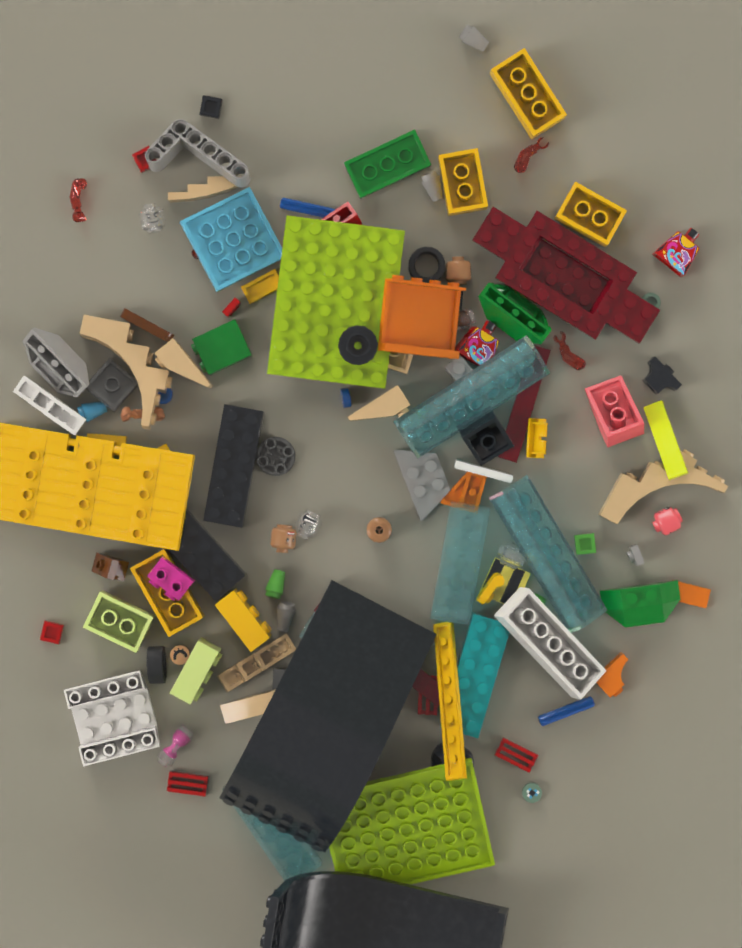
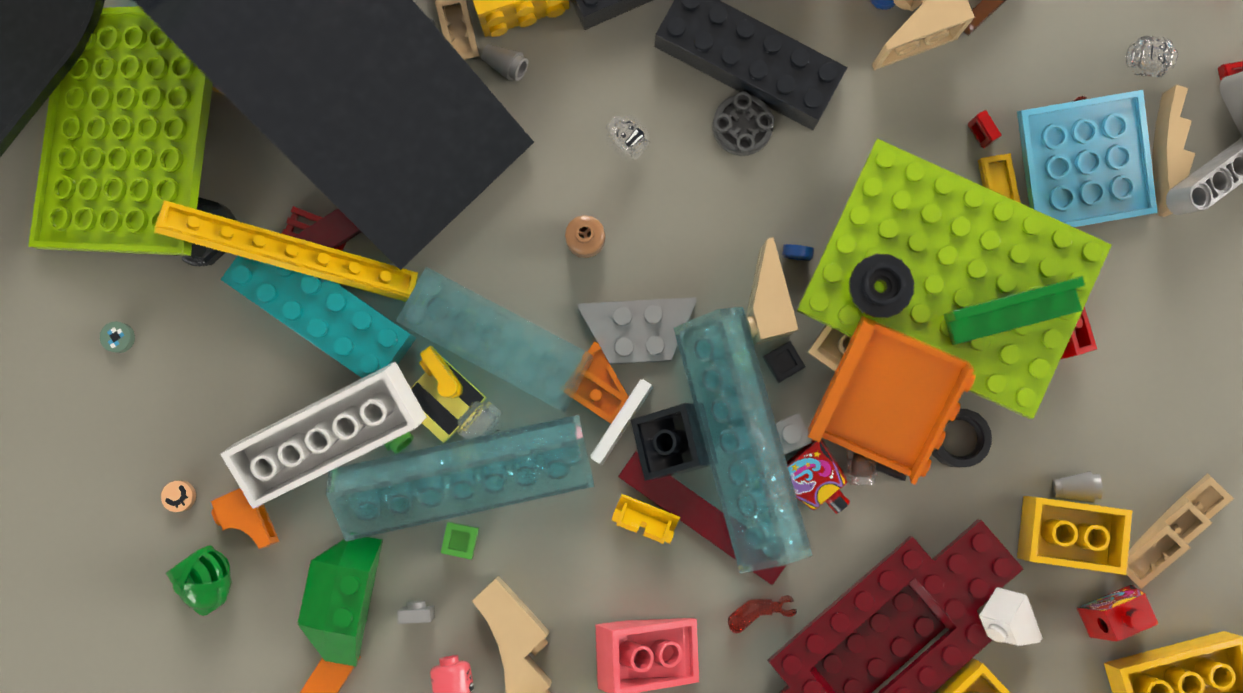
camera: 110 degrees right, 5 degrees down
(221, 347) = (929, 95): green brick -> none
(275, 585) = (554, 62): bright green cone -> none
(283, 538) = (619, 93): medium nougat head -> none
(306, 208) = (1106, 276): blue axle -> none
(347, 263) = (1014, 311): none -> green fence
(387, 164) = (1131, 429): green plate -> none
(414, 384) = (784, 361): none -> black tile
(440, 120) = (1175, 529): none -> tan slope
(458, 271) = (938, 485): medium nougat head -> none
(501, 142) = (1123, 612): none -> red torso
(514, 313) = (848, 546): green wedge -> none
(525, 154) = (1084, 646): clear red arm -> none
(525, 207) = (1010, 618): none -> white slope
(530, 762) = (169, 327): red tile -> none
(566, 711) = (218, 427): blue axle -> none
(613, 720) = (178, 496): none -> light nougat tile
(657, 686) = (202, 580): none -> green helmet

